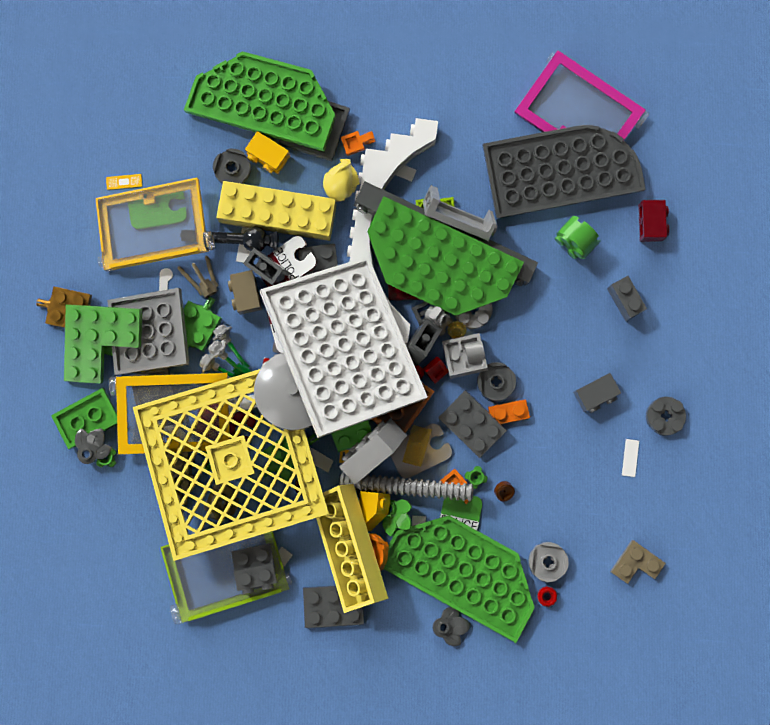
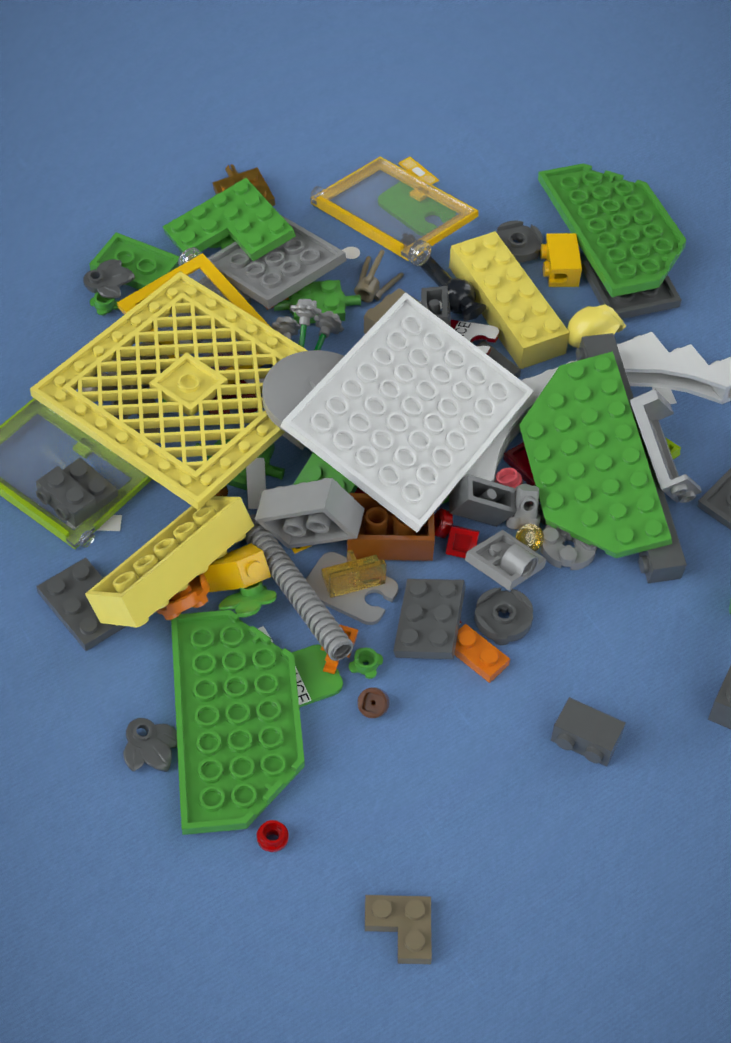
camera: 50 degrees right, 30 degrees down
(354, 142) = (648, 322): orange plate -> none
(413, 314) = (509, 477): none -> coral plate
(555, 570) = (320, 825): light grey plate -> none
(630, 458) = (538, 832): white sticker -> none
(674, 423) = (636, 822): dark grey plate -> none

